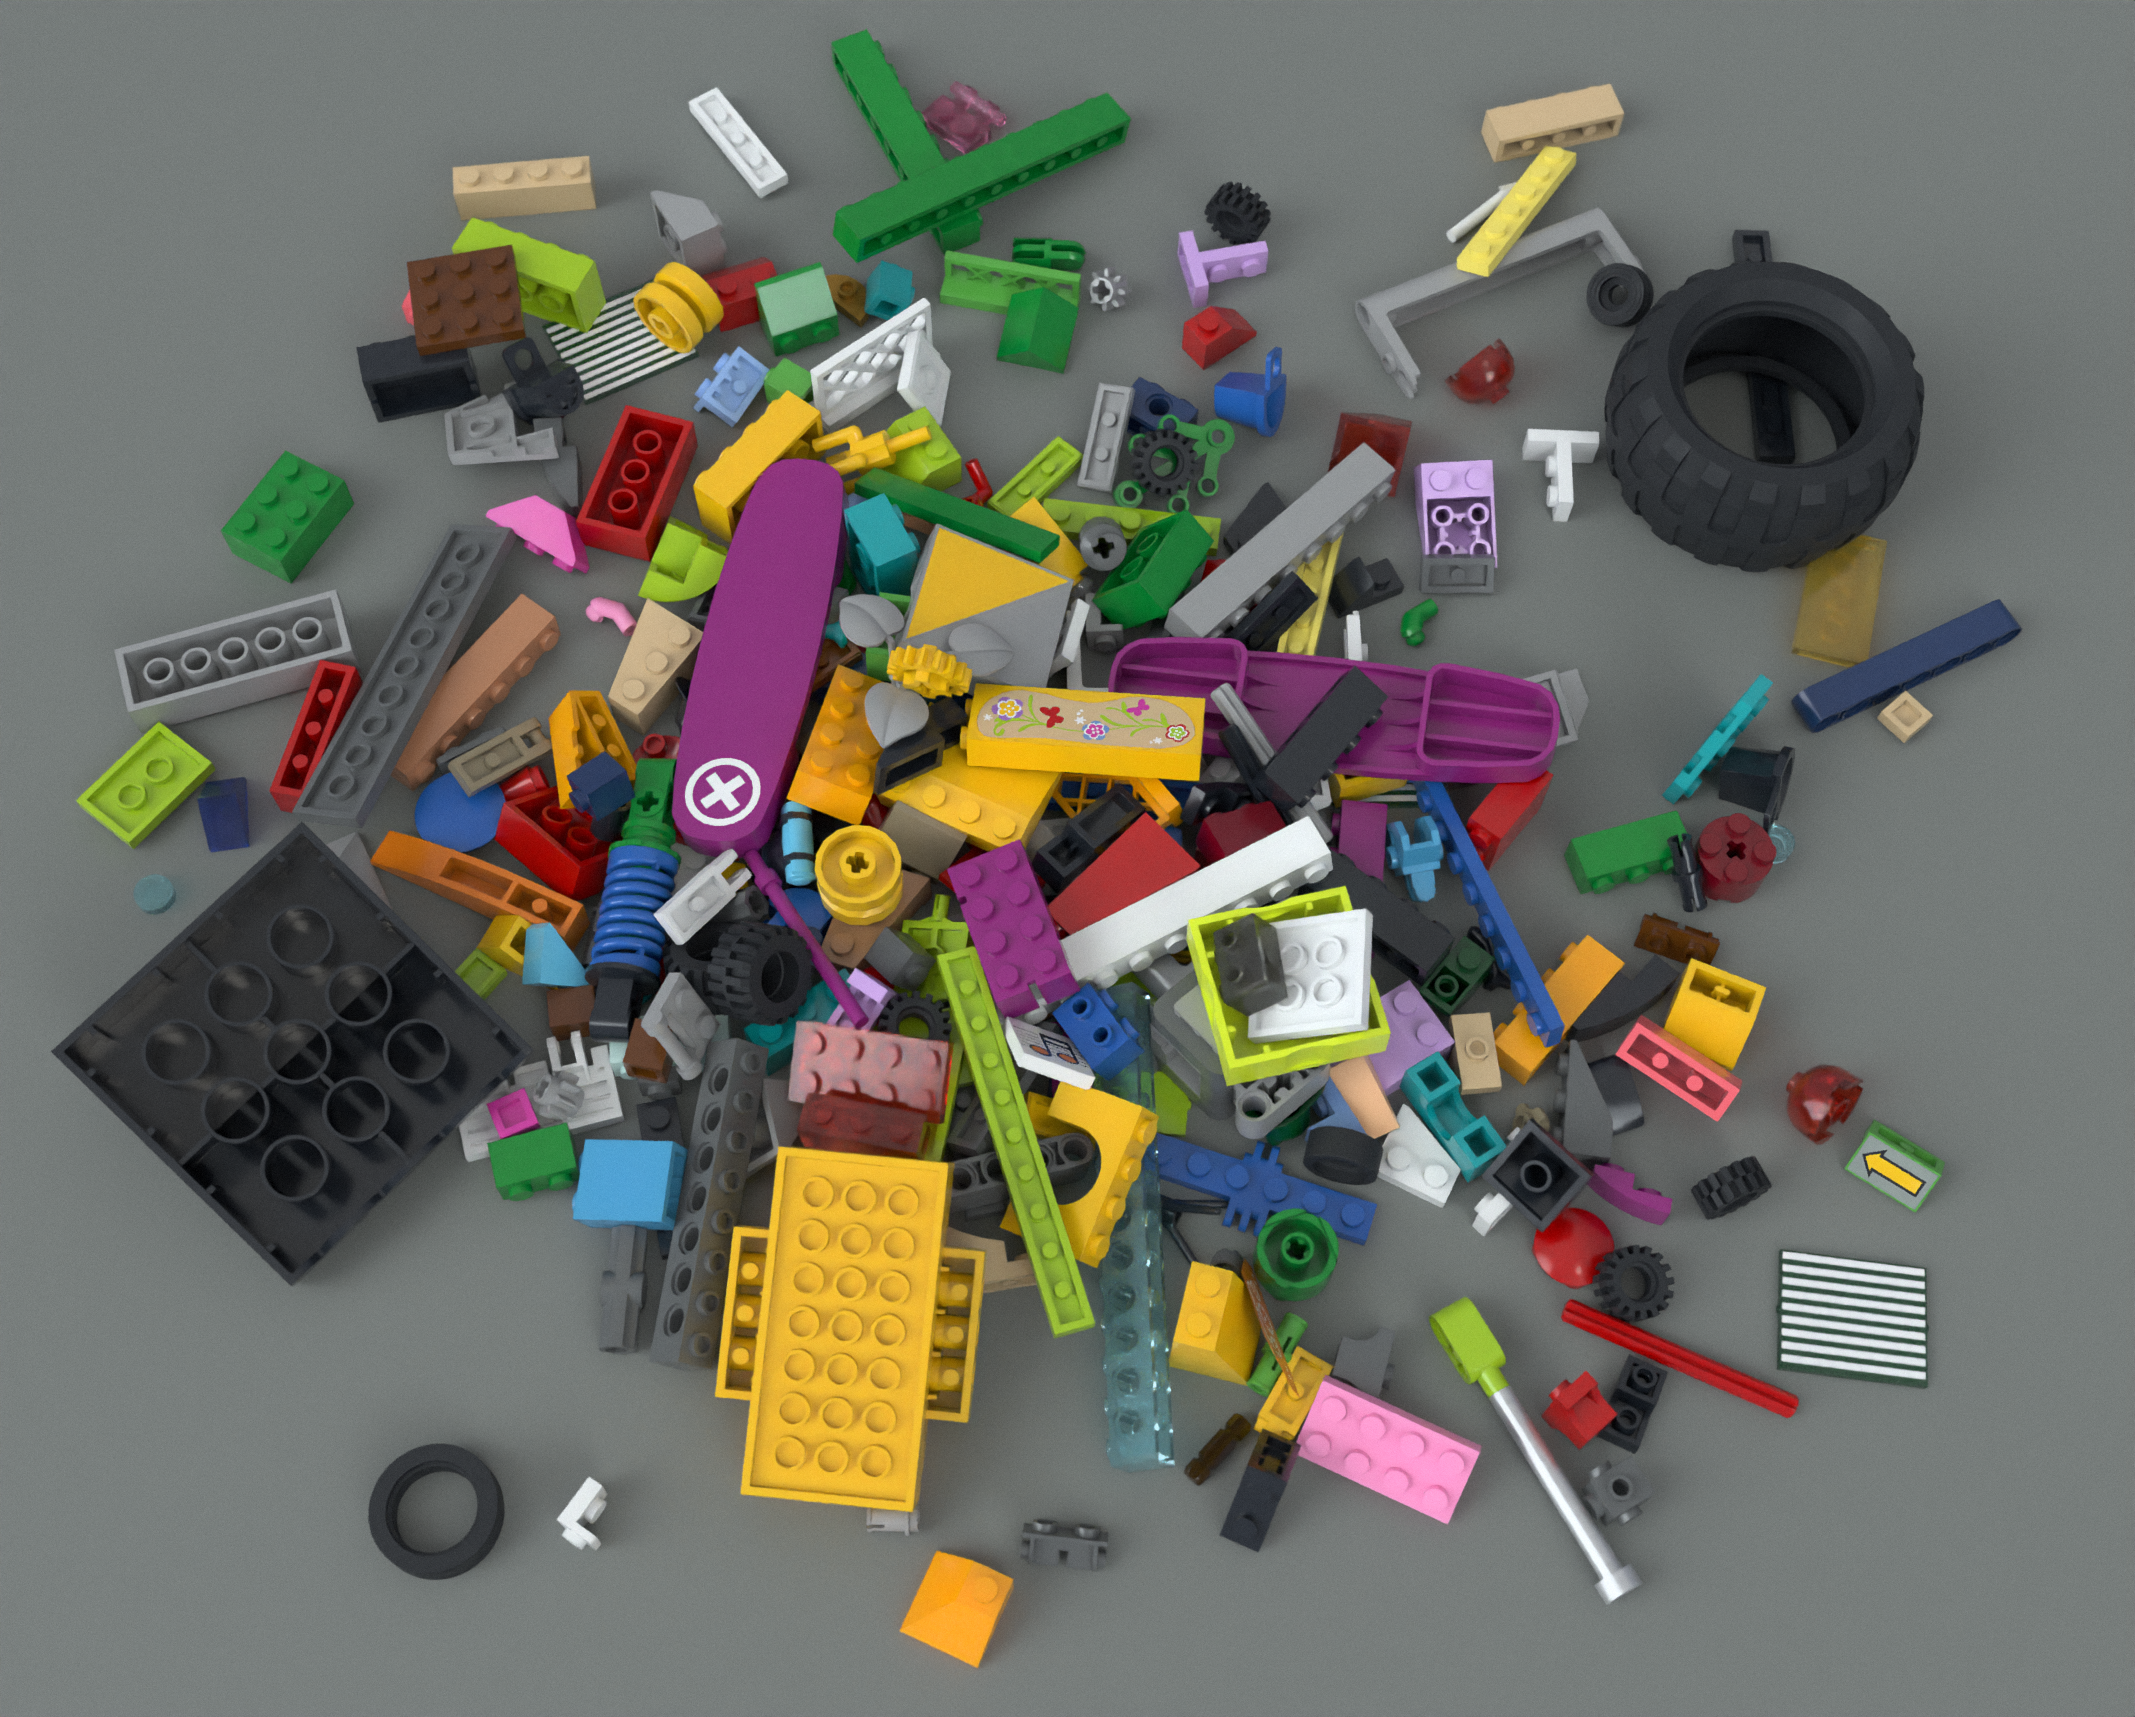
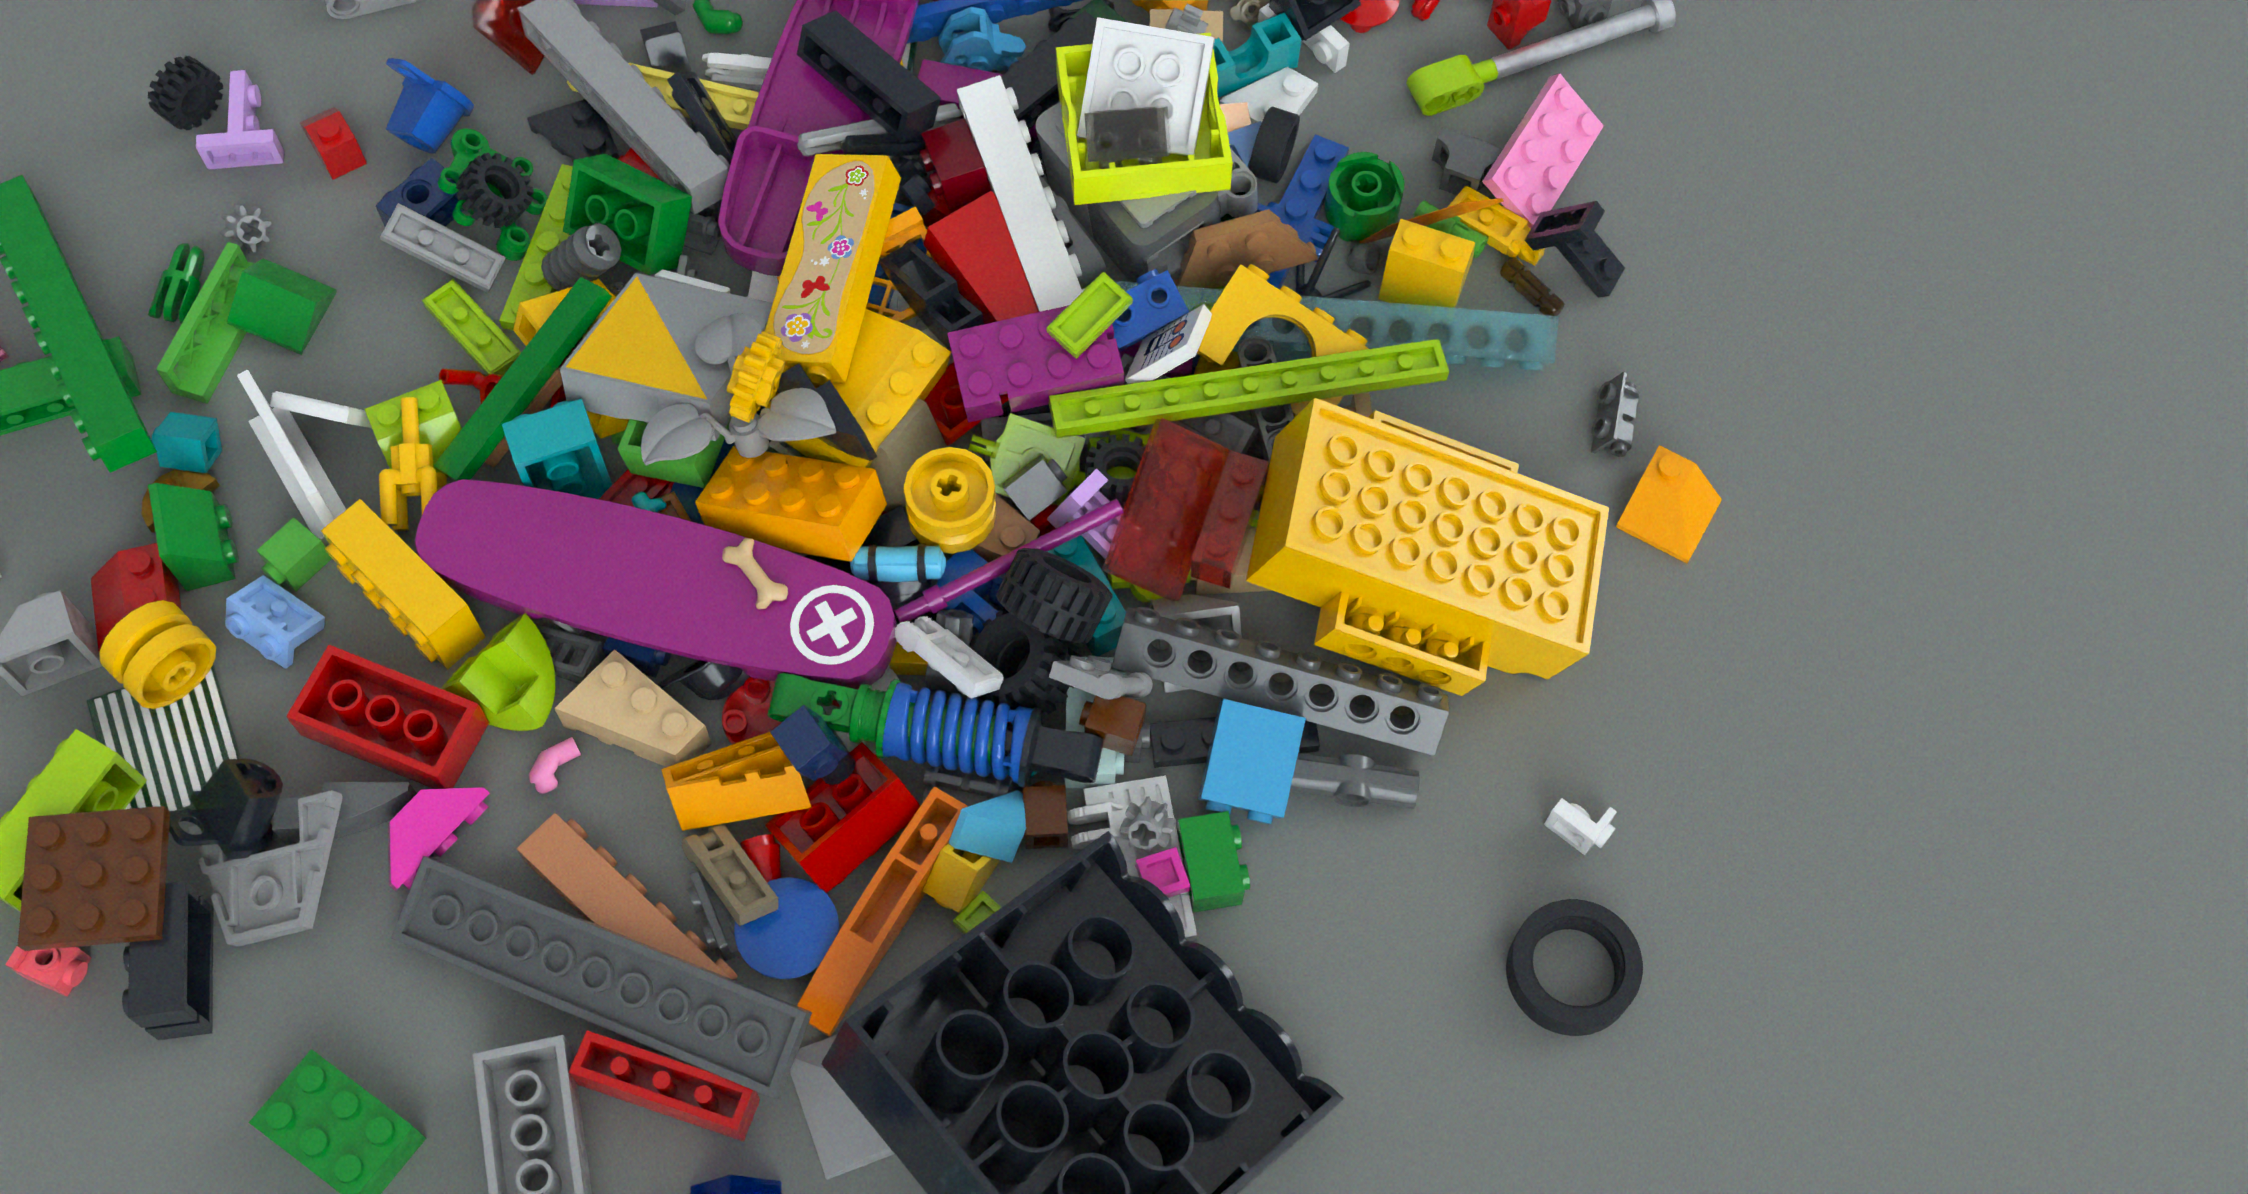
camera: 85 degrees left, 0 degrees up
(778, 707) = (766, 588): none -> tan piece
(1041, 956) = (1089, 315): none -> lime tile
(1193, 1129) = (1247, 240): none -> medium nougat wing
(1454, 1040) = (1187, 20): none -> light grey gear

